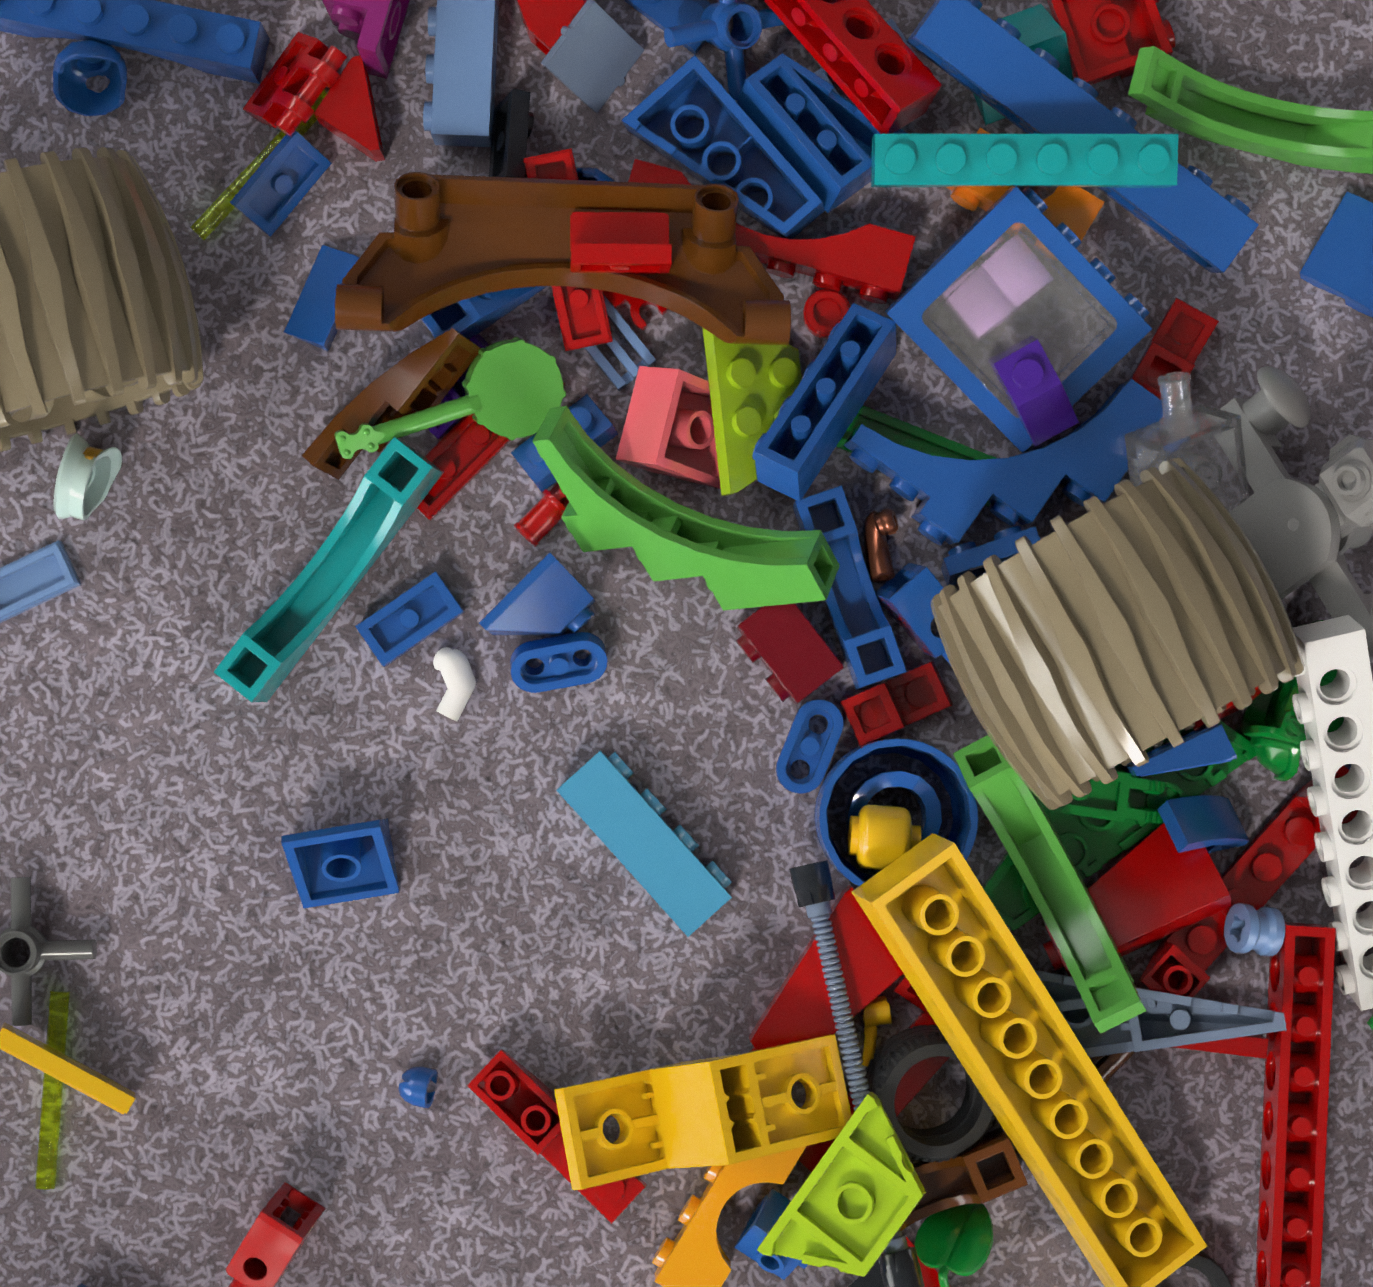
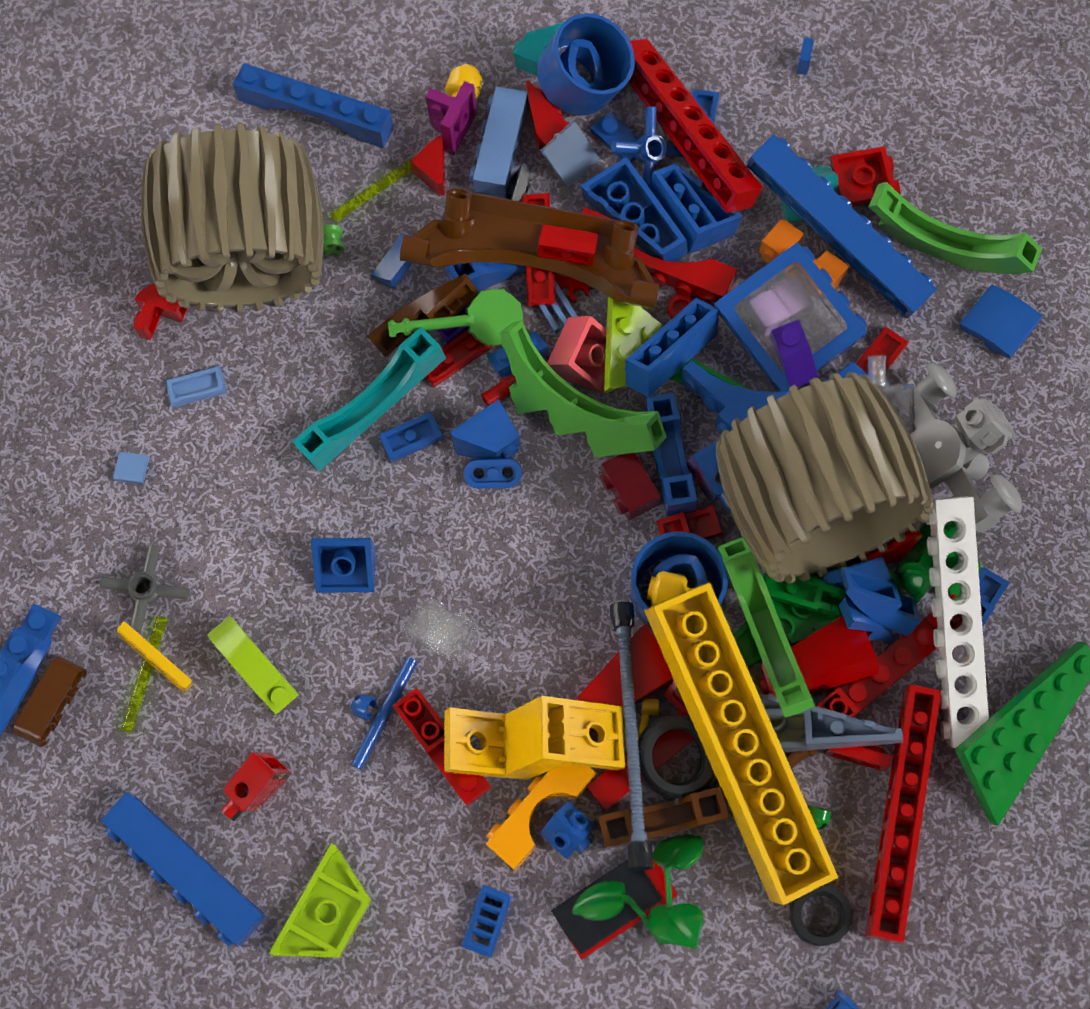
camera: 15 degrees right, 15 degrees down
(84, 478) = (242, 331): light aqua piece -> none
(85, 60) = (293, 121): blue hair -> none
(205, 280) = (332, 240): none -> bright green wheel
(220, 1054) = (252, 665): none -> lime arch
(280, 183) = (384, 196): blue plate -> none
(295, 83) = (403, 146): red plate -> none
(454, 1089) = (384, 713): none -> blue bar
(458, 679) = (433, 476): white arm -> none
(523, 955) = (441, 632): none -> clear brick
(645, 843) = (526, 582): dark azure brick -> none
(809, 746) = (631, 543): blue plate -> none
(851, 1198) = (616, 802): lime wing -> none
(876, 545) = (690, 438): copper arm -> none
(1025, 160) = (846, 233): teal arch -> none
(1163, 1149) = (820, 816): none -> green hinge
(1225, 795) = (881, 601): none -> blue slope
(1254, 929) = (890, 687): medium blue wheel -> none

